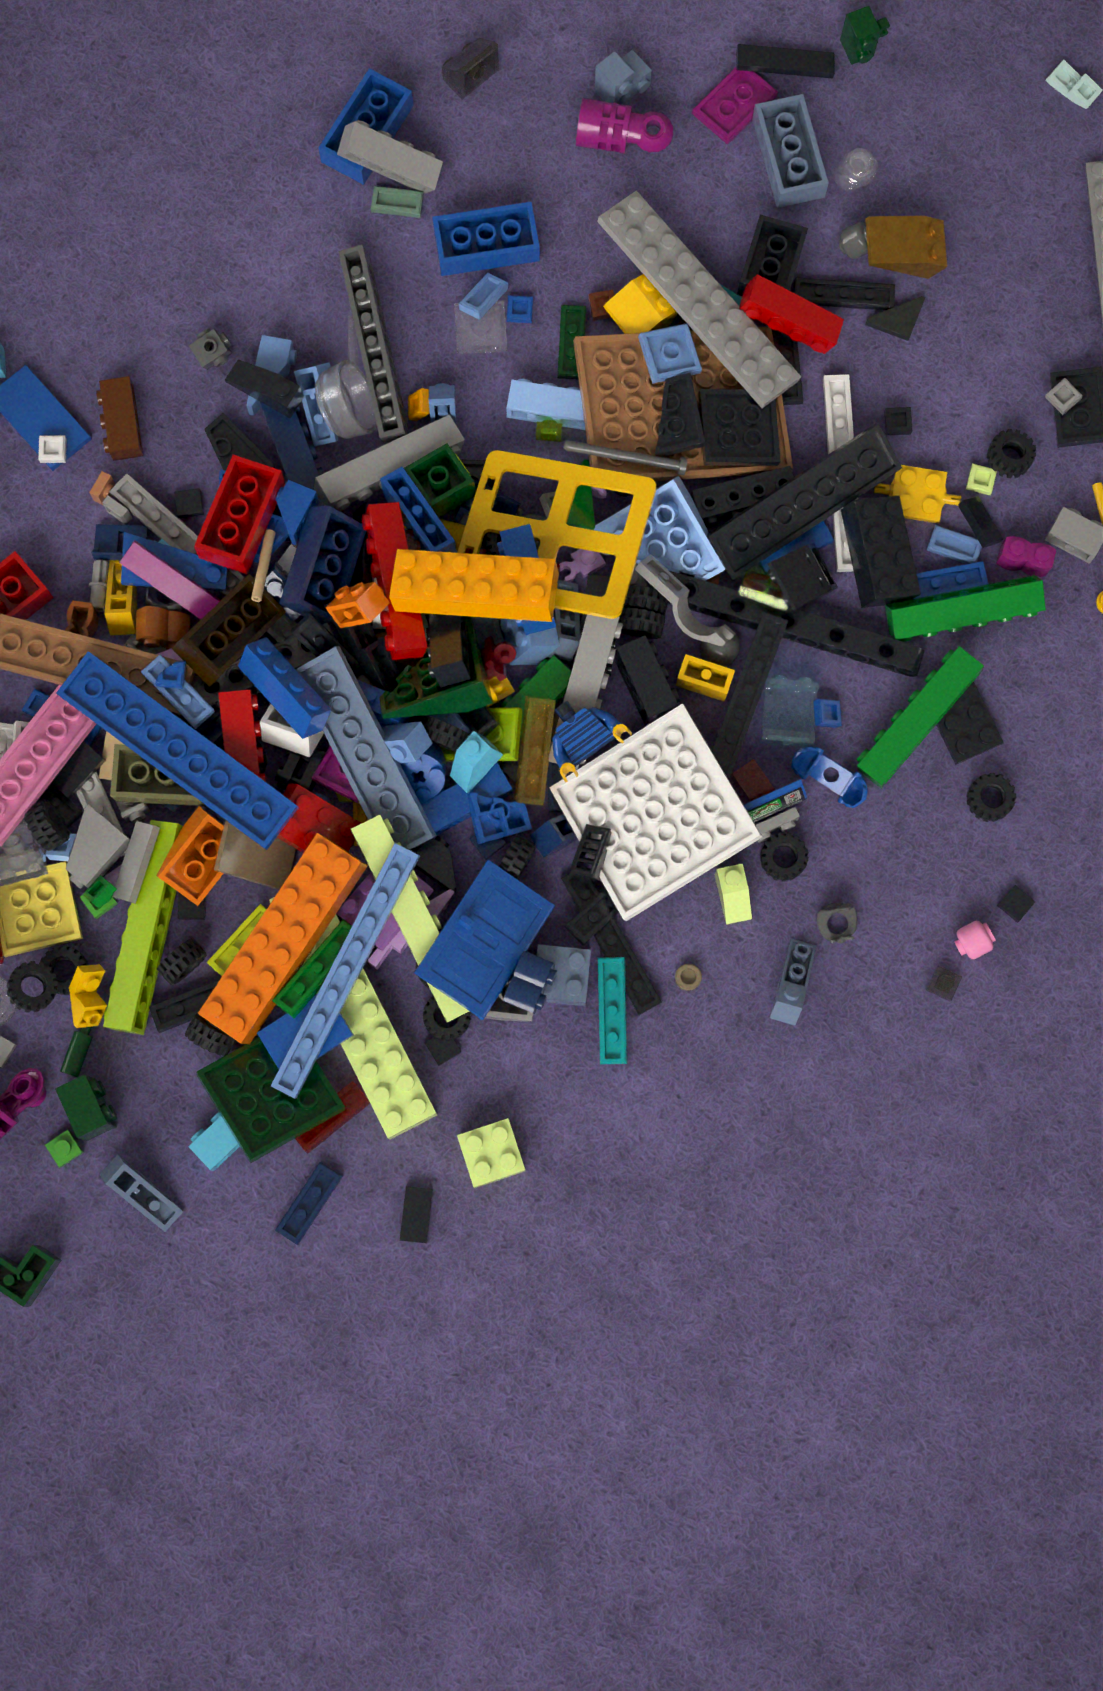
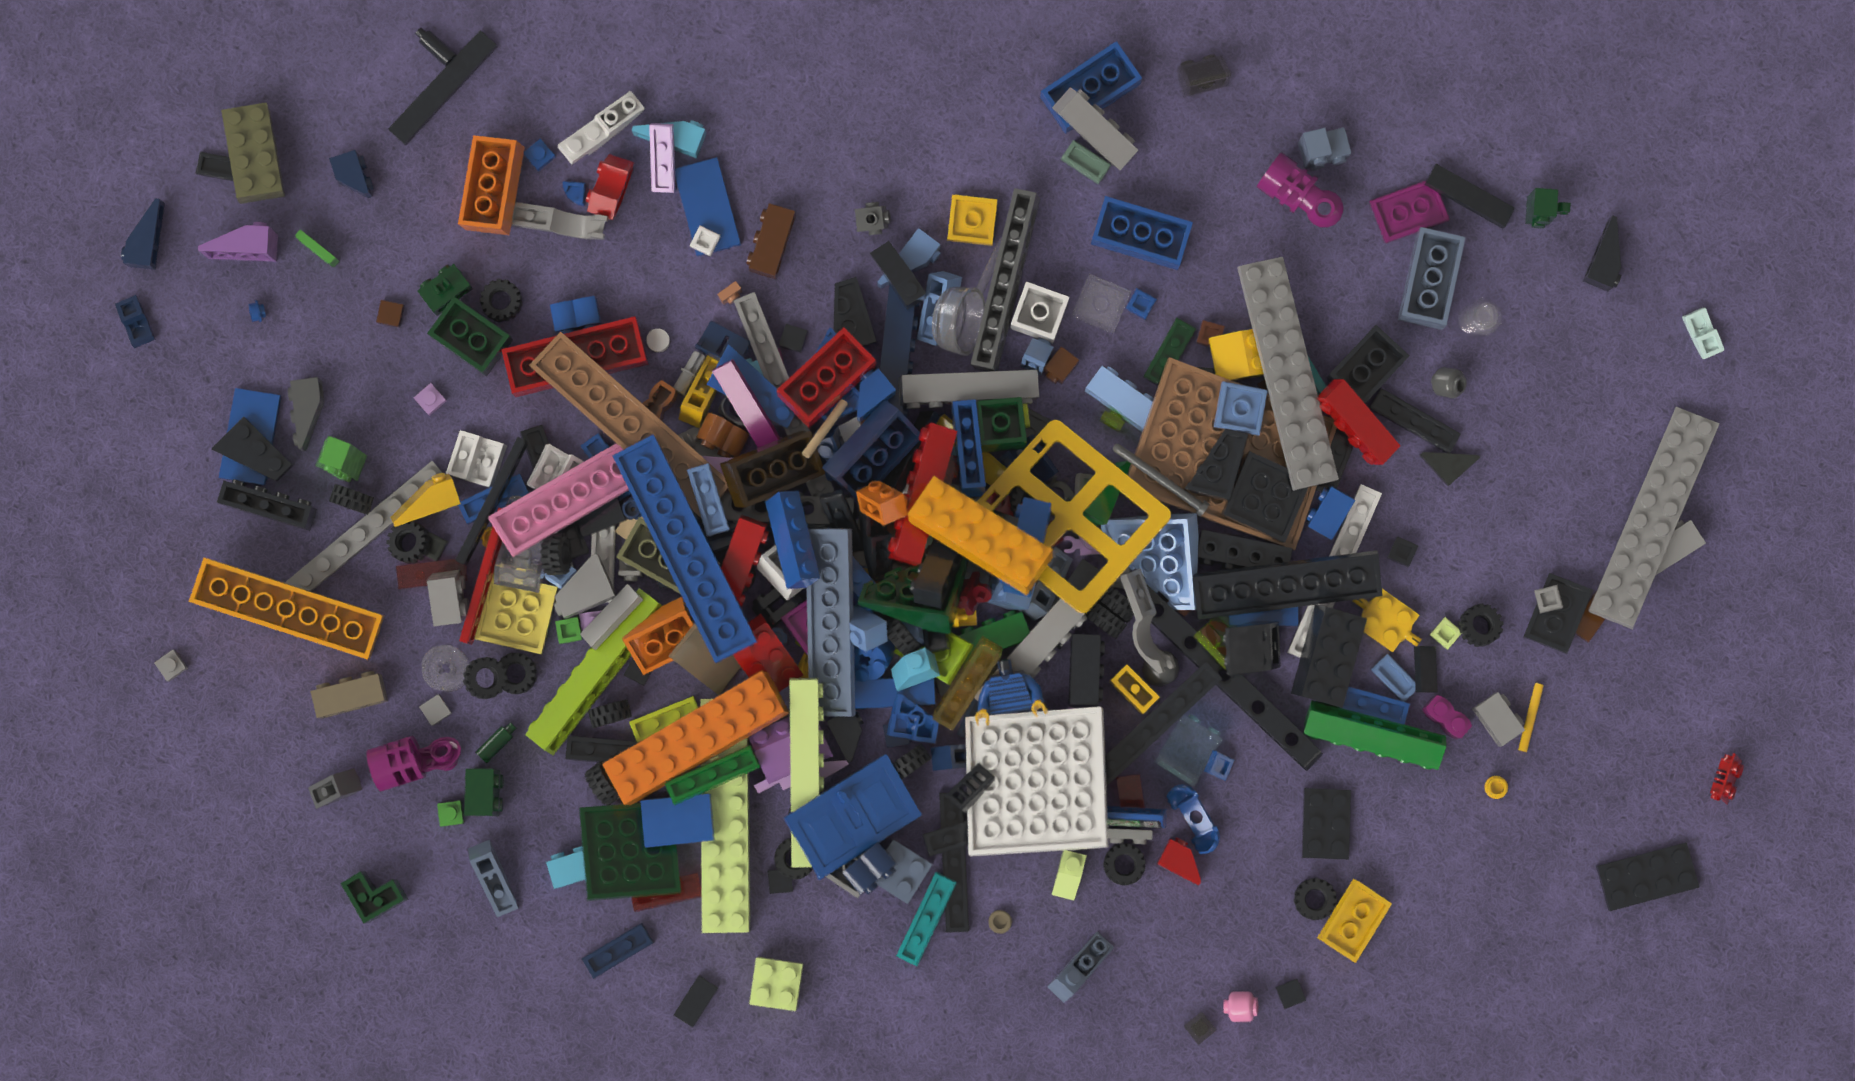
camera: 30 degrees right, 5 degrees up
(52, 569) = (658, 340): none -> white tile
(85, 1001) = (521, 708): yellow slope -> none
(99, 747) = (628, 513): none -> dark blue plate
(100, 892) = (572, 627): green plate -> none
(117, 510) = (732, 317): light grey tile -> none
(172, 676) = (710, 487): blue tile -> none
(312, 306) = (972, 220): none -> yellow plate
(345, 970) = (731, 789): medium blue plate -> none
(418, 404) = (1017, 346): light orange tile -> none
(423, 359) = (1039, 312): none -> white brick
(471, 402) = (1060, 366): none -> reddish brown brick
(483, 296) = (1115, 280): medium blue tile -> none
(809, 414) = (1330, 512): none -> blue brick
(838, 825) = (1179, 860): none -> red slope
(848, 911) = (1142, 925): dark grey piece -> none
(907, 244) = (1485, 407): pearl gold slope -> none
(920, 716) = (1290, 807): green brick -> none
(947, 58) = (1606, 261): none -> black slope
(1041, 798) = (1354, 920): none -> yellow plate

